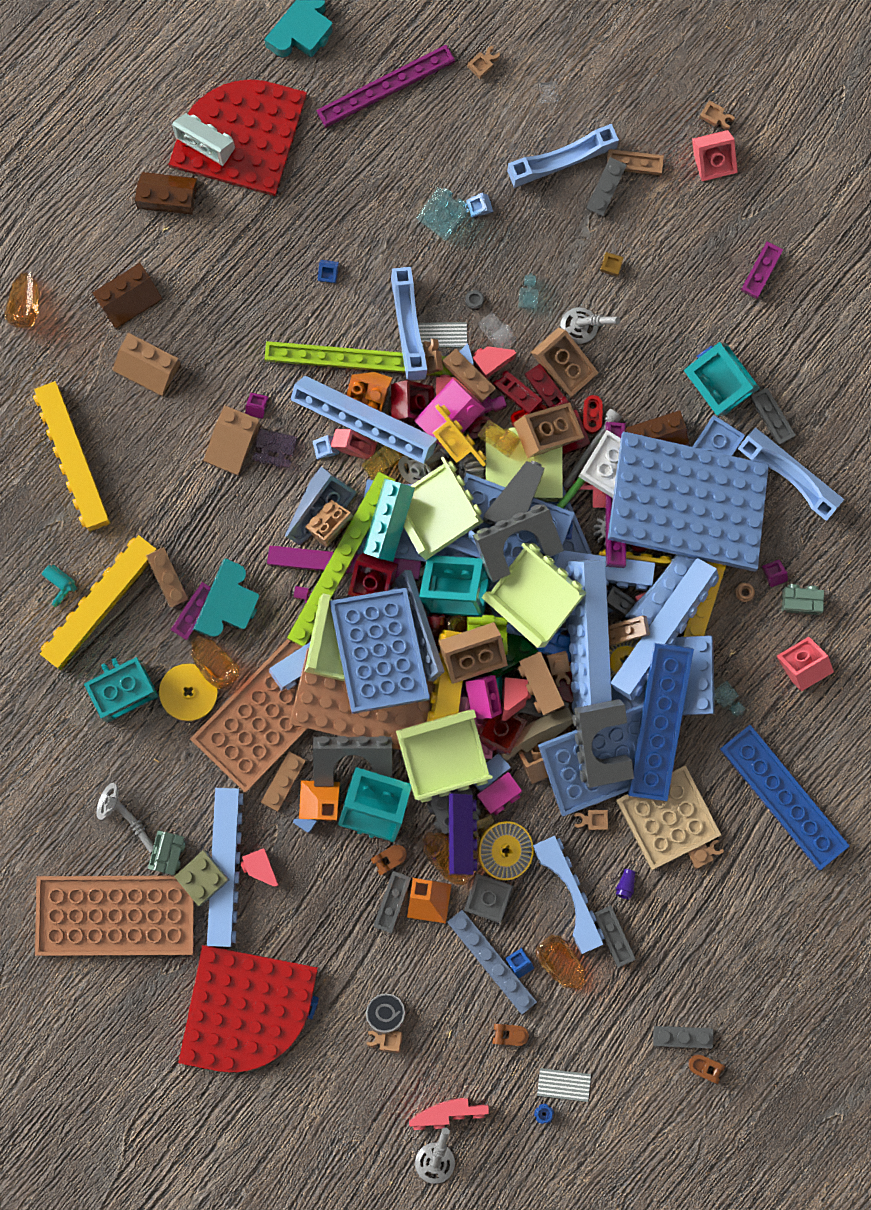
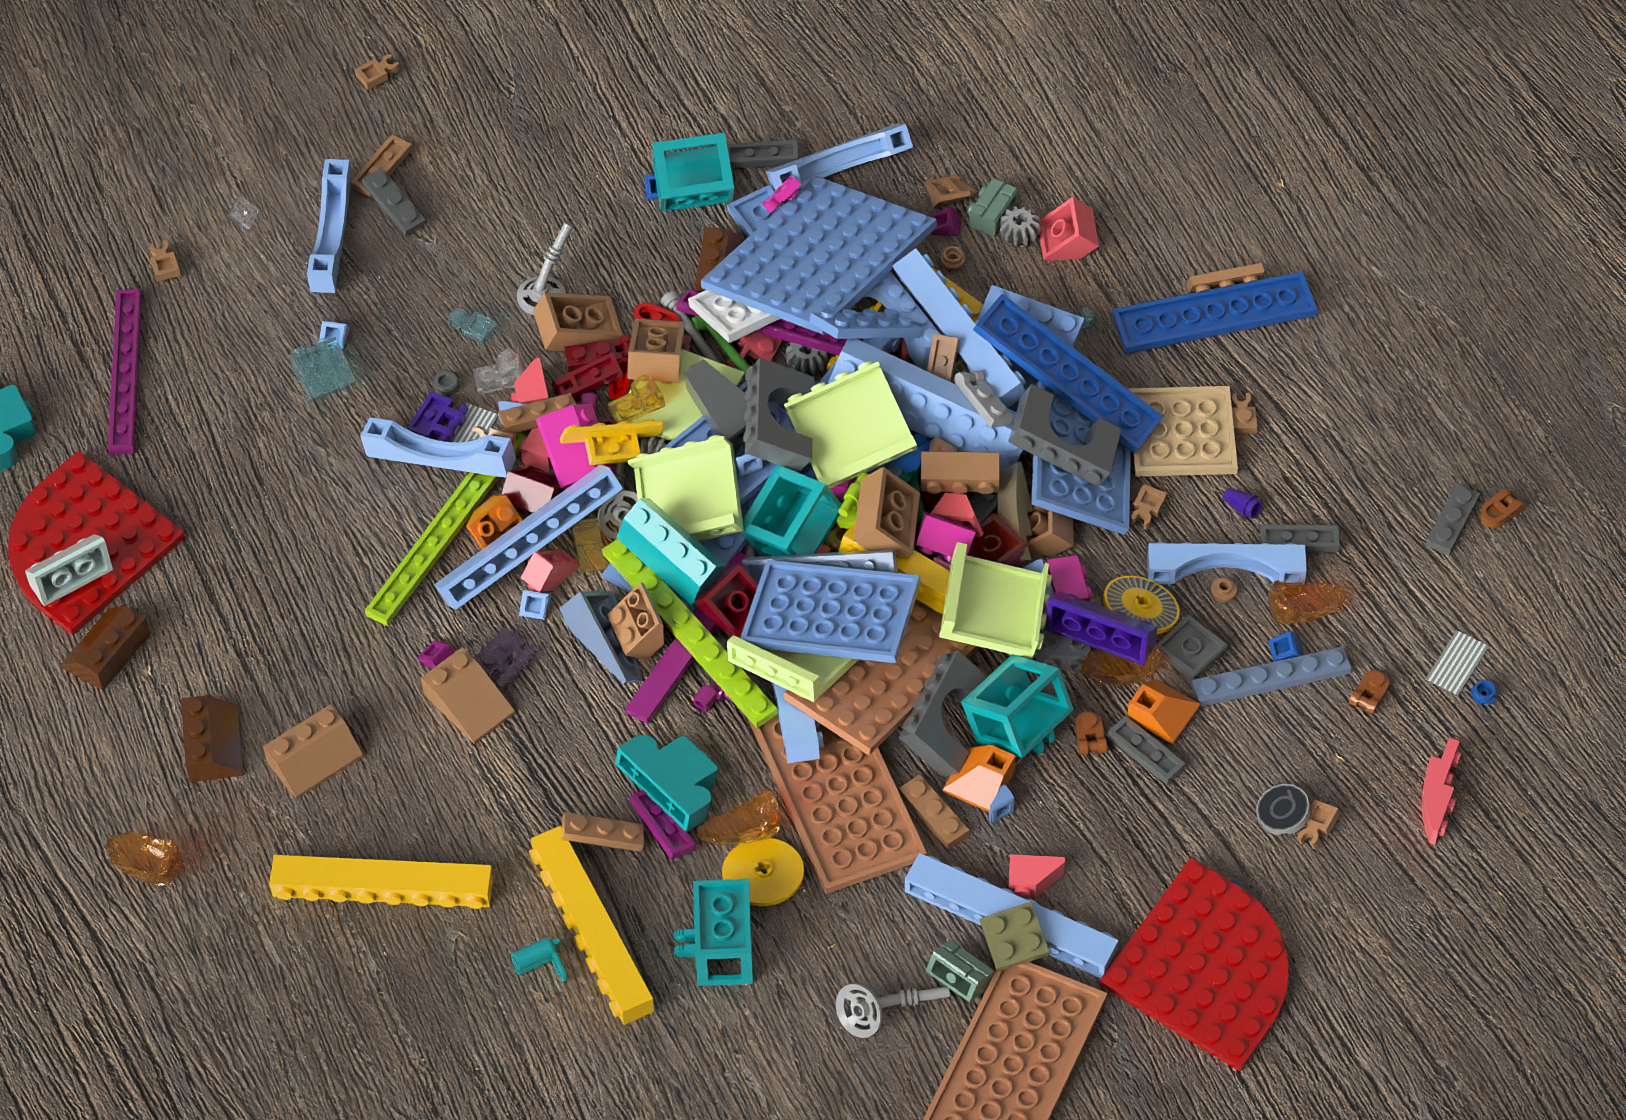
camera: 60 degrees left, 25 degrees down
(328, 271) = (316, 516): blue slope -> none
(435, 1159) = (1496, 828): light grey dish -> none
(439, 304) = (432, 414): none -> dark purple plate
(542, 905) = (1220, 595): none -> medium nougat plate
(604, 674) = (983, 398): none -> light grey plate
(611, 264) = (488, 233): pearl gold plate -> none
(626, 565) = (865, 324): none -> medium blue plate
(715, 155) = (422, 88): coral slope -> none
(737, 451) = (786, 190): none -> dark pink plate
(761, 270) = (584, 99): magenta plate -> none
(787, 623) = (1020, 226): none -> light grey gear
(804, 563) = (948, 190): none -> medium nougat slope
(816, 793) = (1225, 278): none -> medium nougat plate

